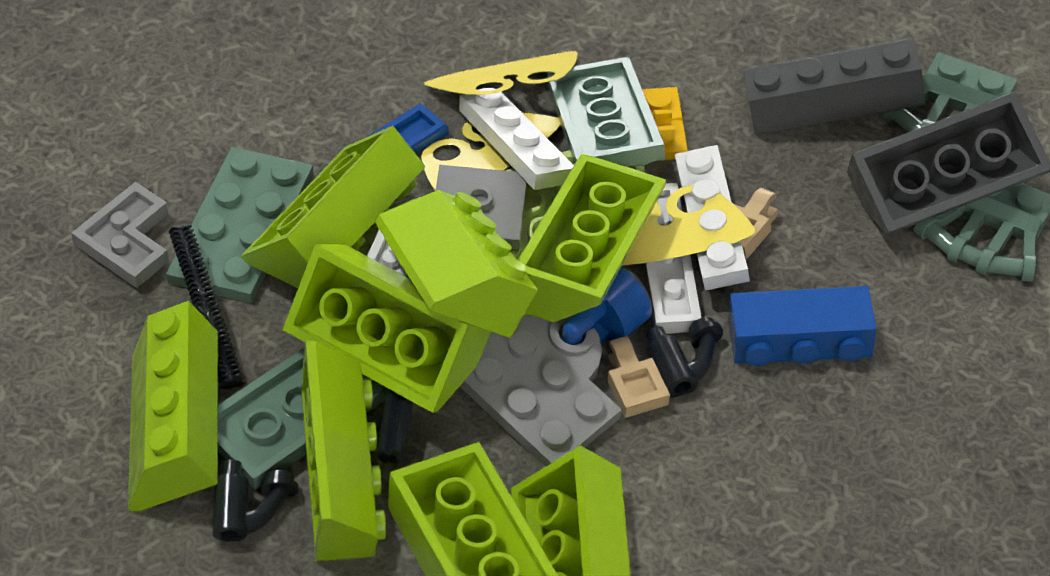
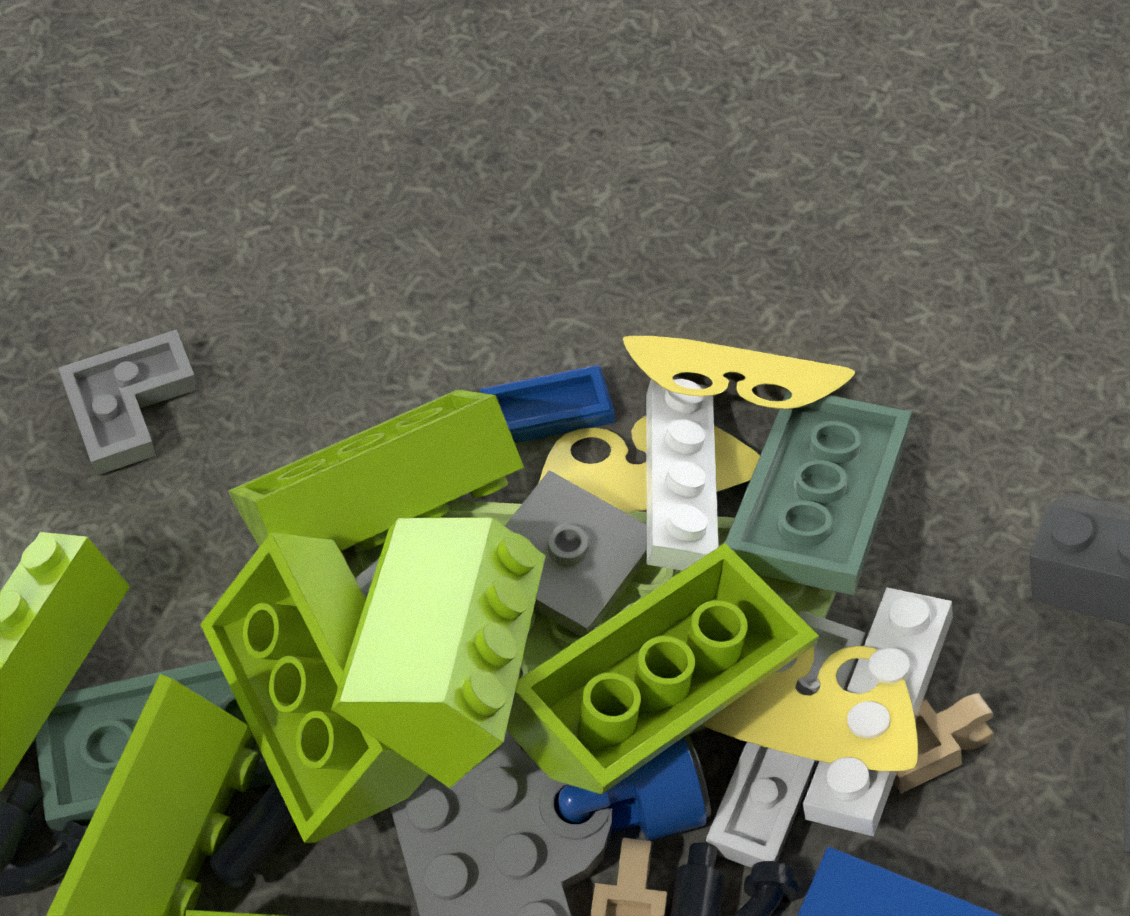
camera: 30 degrees right, 5 degrees up
(205, 302) = (144, 542): black axle -> none
(235, 212) = (287, 414): sand green plate -> none
(668, 117) = (908, 529): yellow plate -> none

